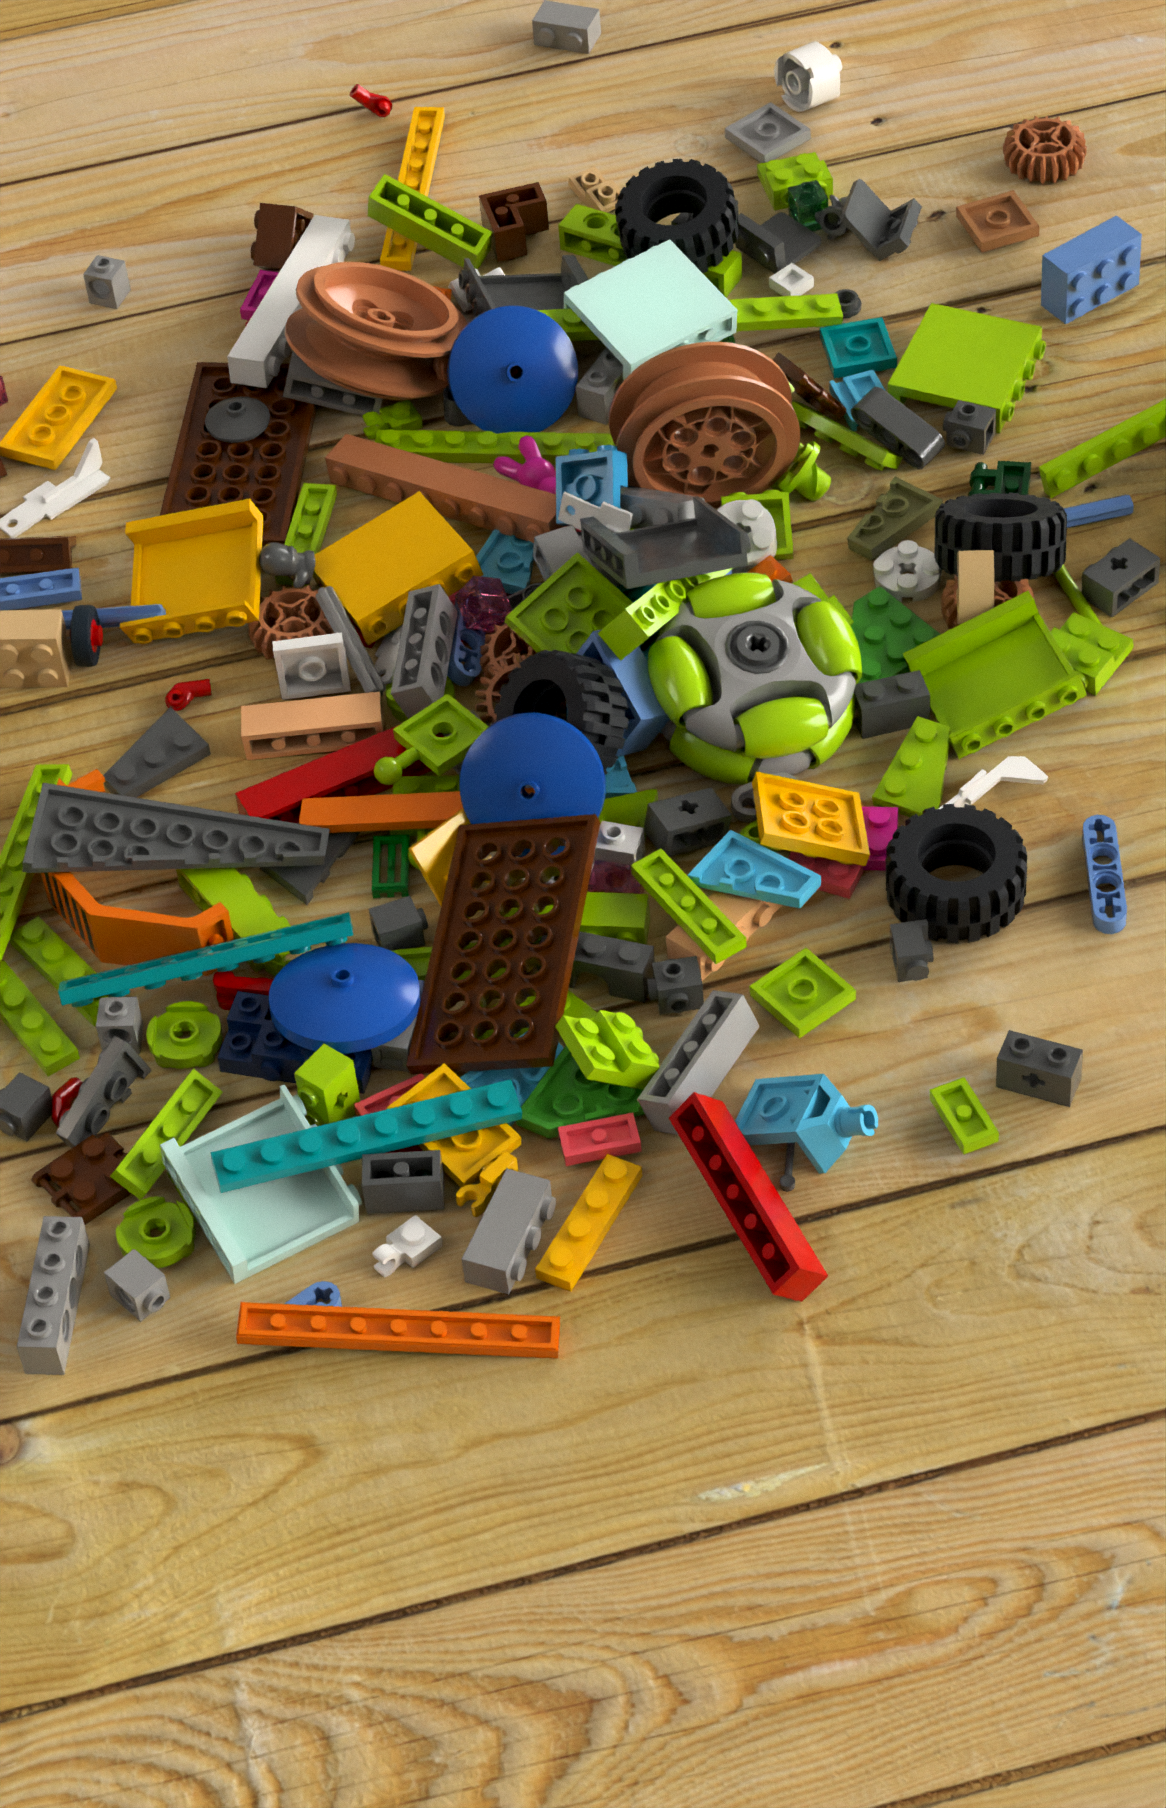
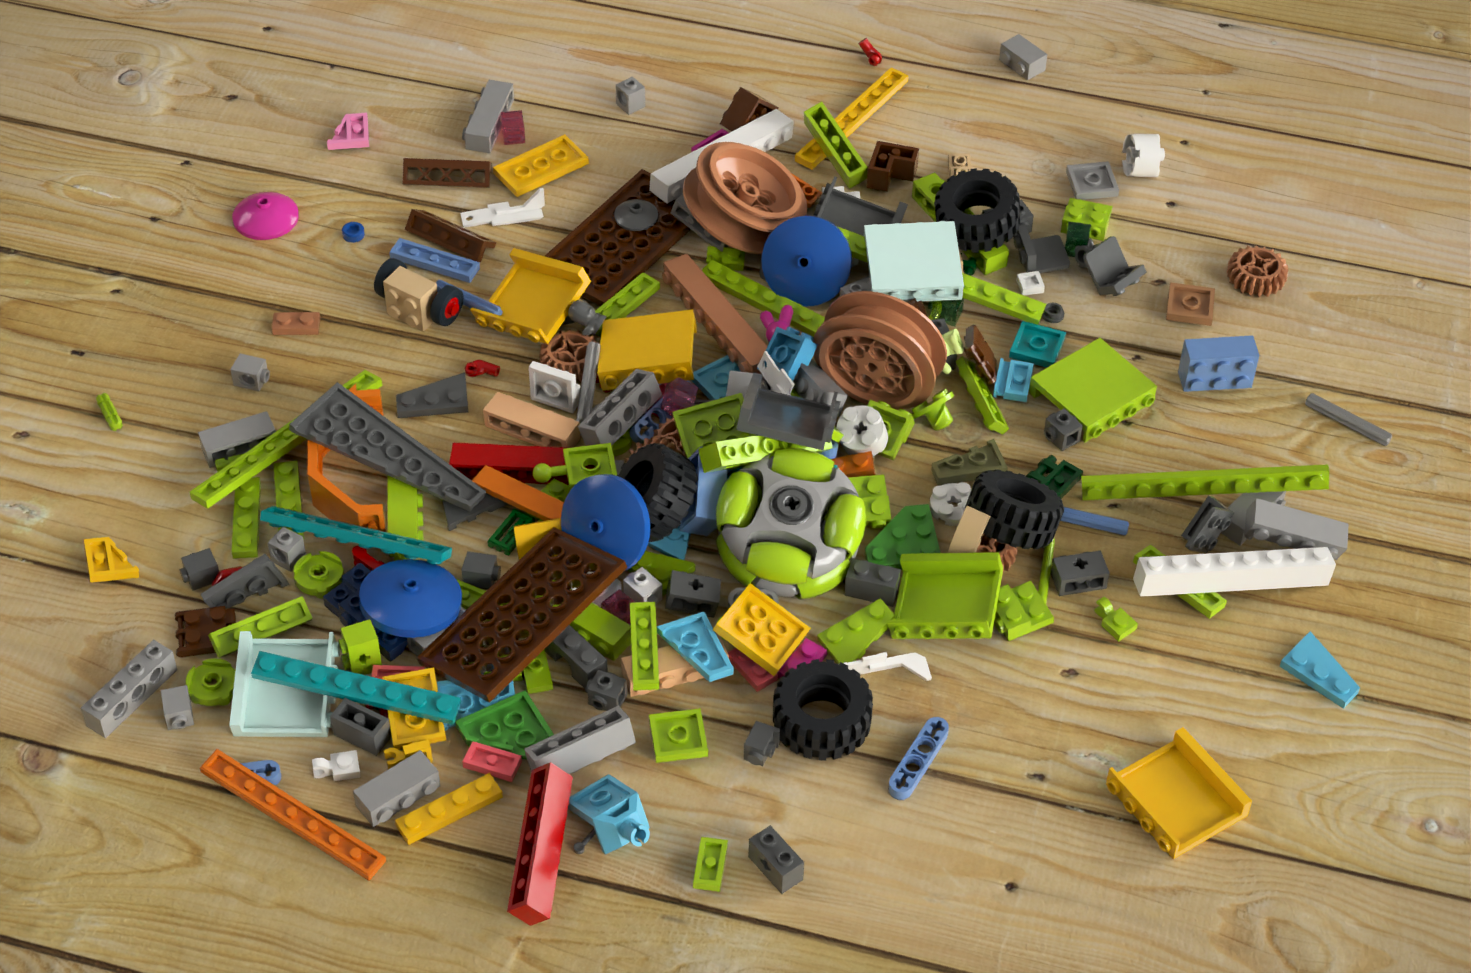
camera: 25 degrees right, 0 degrees up
(609, 1049) = (528, 709): lime plate -> none
(897, 428) = (1016, 408): dark grey beam -> none

